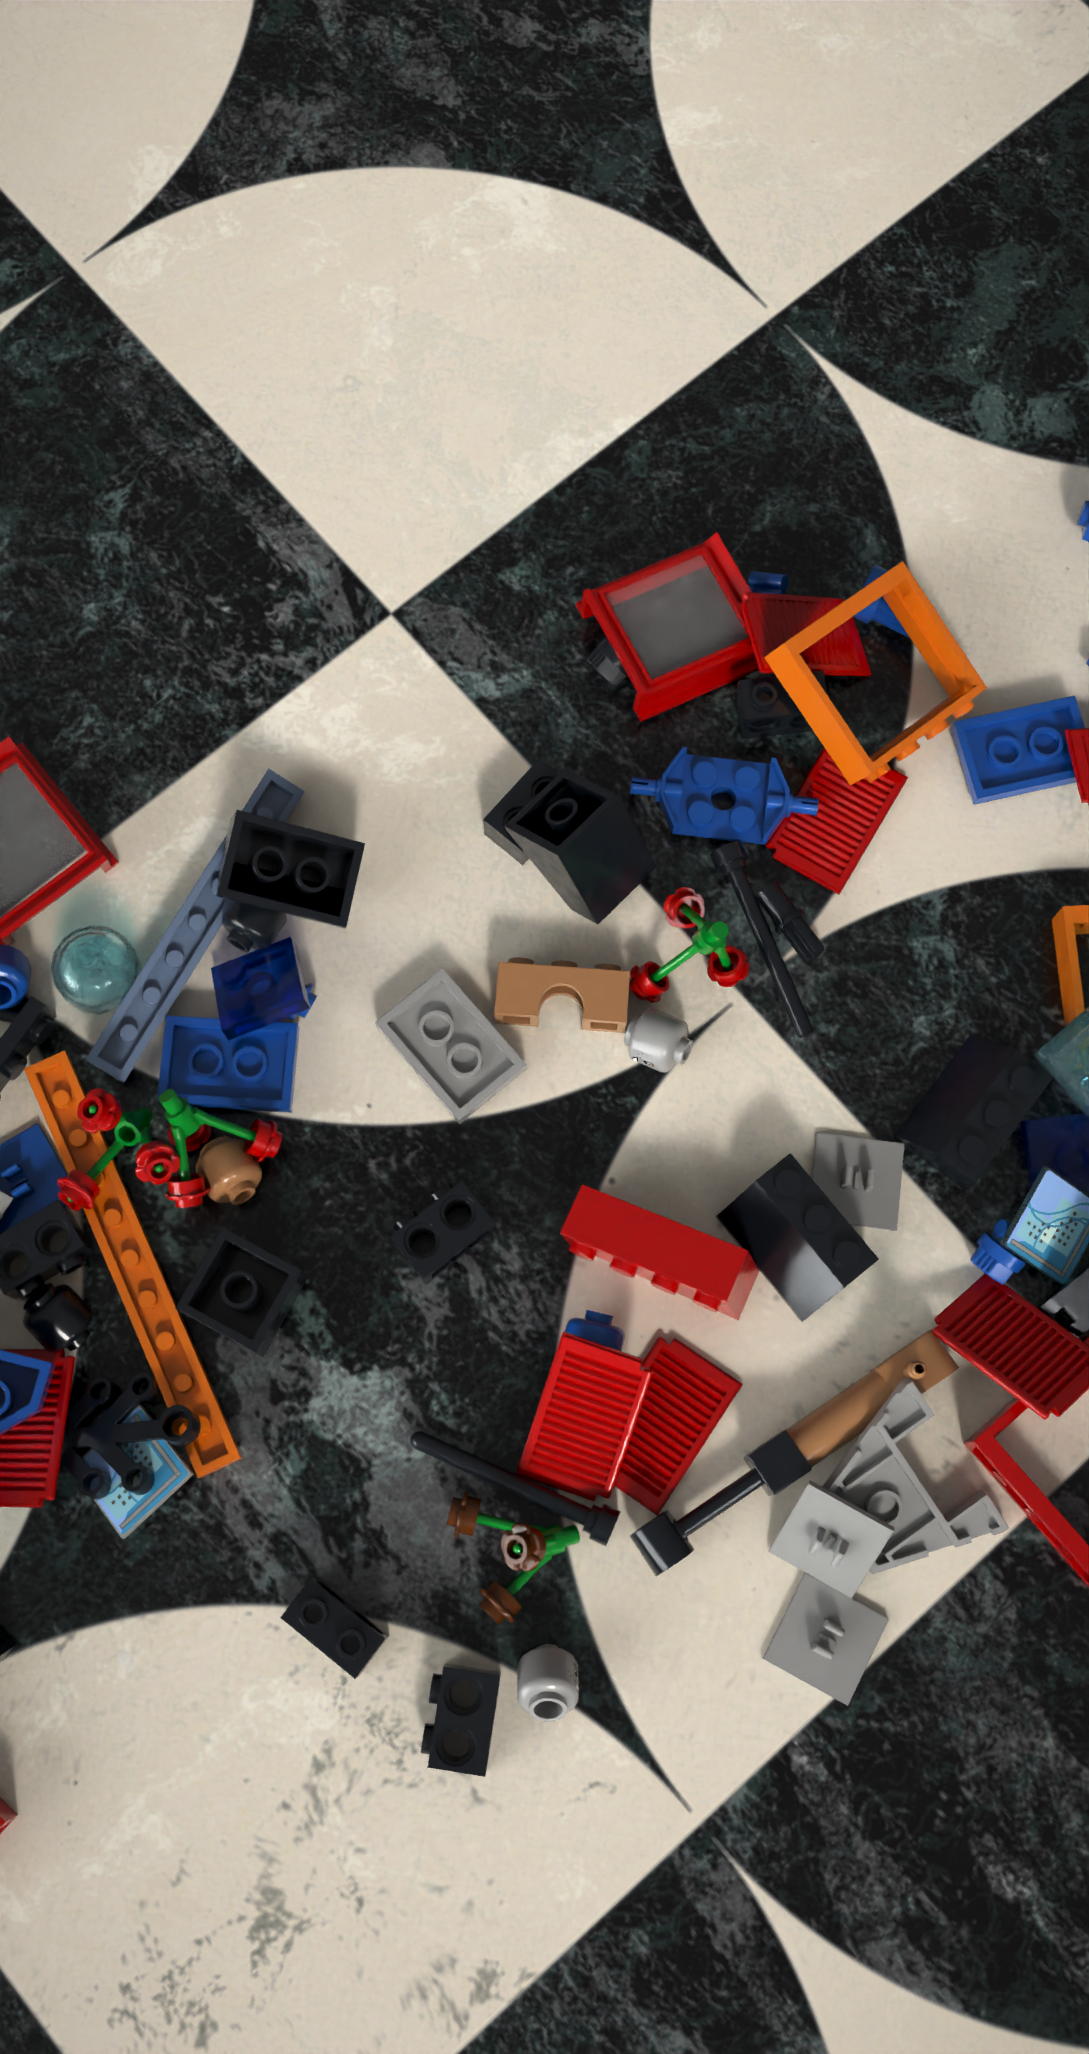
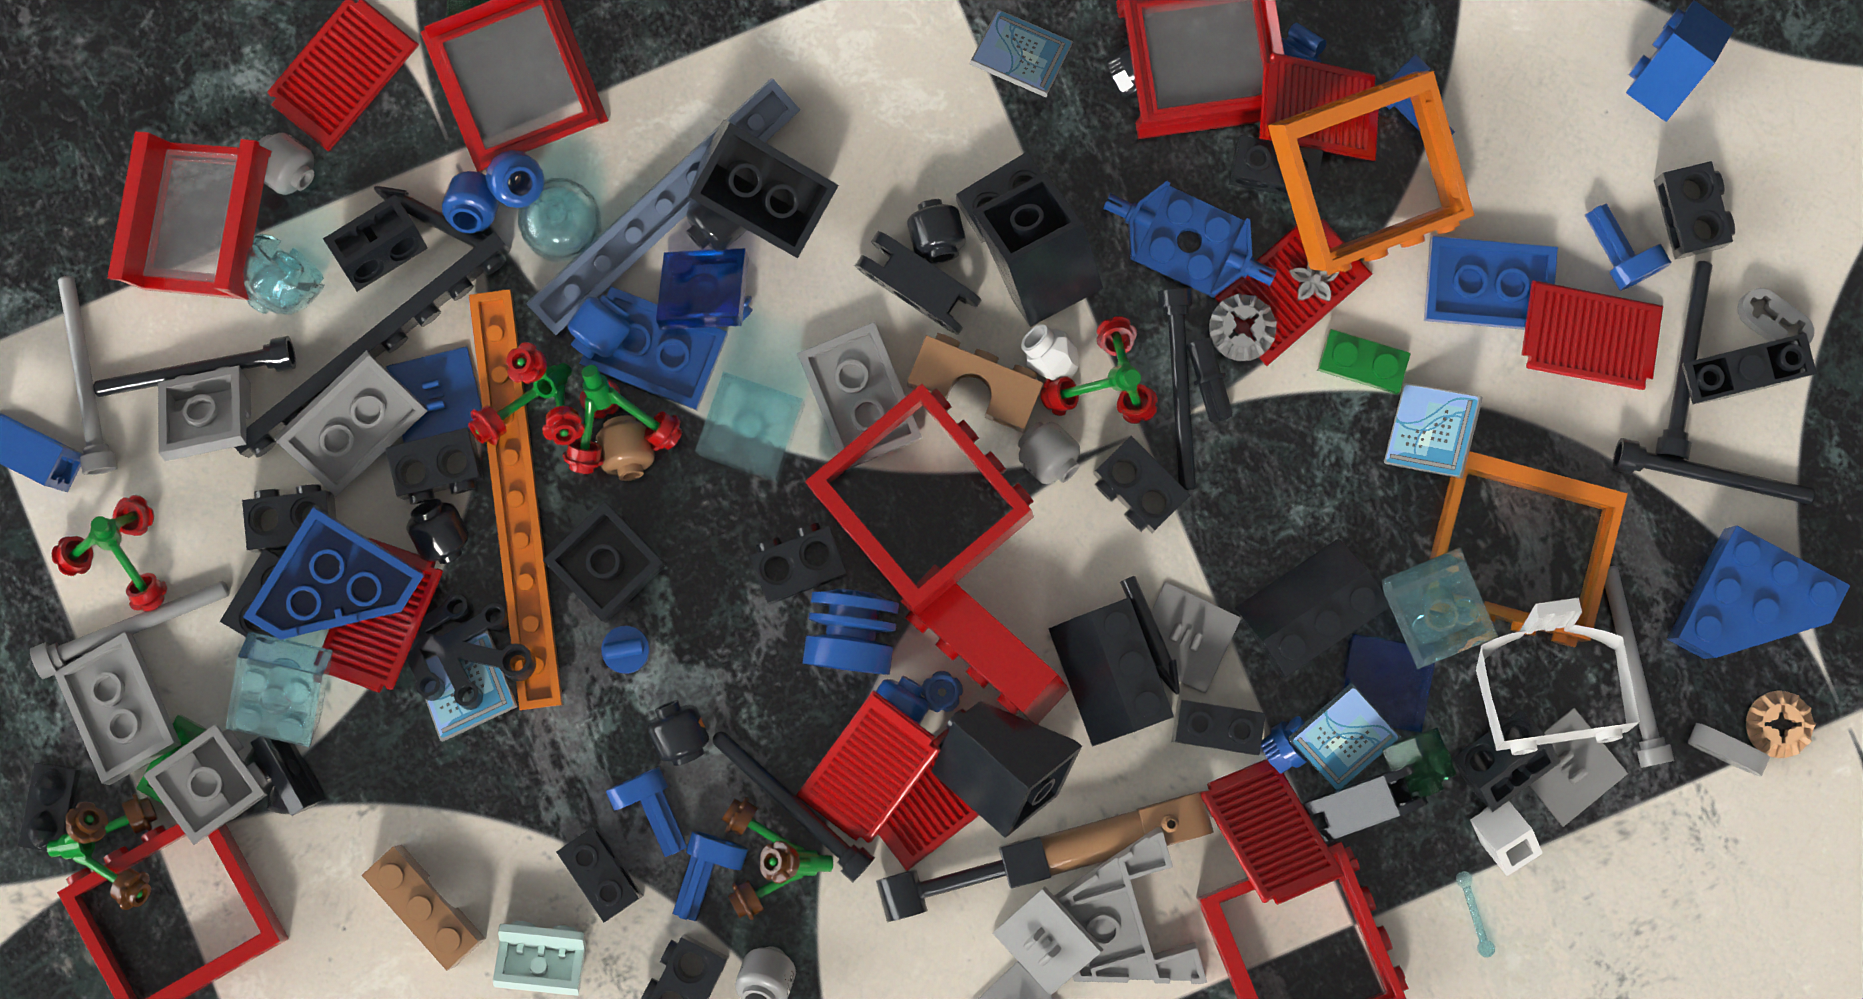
camera: 20 degrees right, 10 degrees up
(45, 923) = (518, 192): none -> blue head
(161, 1736) = (421, 908): none -> medium nougat arch
(165, 1055) = (599, 327): none -> blue head
(291, 1377) = (625, 649): none -> blue piece
(297, 1743) = (539, 958): none -> light aqua bracket
(350, 1109) = (750, 427): none -> clear light blue brick
(360, 1519) = (649, 791): none -> blue piece
(372, 1447) = (678, 733): none -> black head
(440, 1565) = (705, 852): none -> blue piece
(472, 917) = (917, 282): none -> black piece
(475, 864) = (936, 231): none -> black head
(502, 675) = (1021, 53): none -> piece
(519, 1281) = (851, 632): none -> blue wheel
(572, 1220) = (987, 464): none -> red window
(626, 943) = (1050, 352): none -> white rock
(642, 1309) = (953, 690): none -> blue plate
(722, 1365) = (1003, 764): none -> black slope
(765, 1032) = (1148, 477): none -> black brick
(810, 880) = (1241, 347): none -> light grey gear
(851, 1213) = (1165, 665): none -> black piece
(856, 799) = (1313, 282): none -> light grey plant
(925, 1257) = (1218, 727): none -> black brick
(931, 860) = (1364, 361): none -> green plate
(1024, 900) = (1433, 430): none -> piece

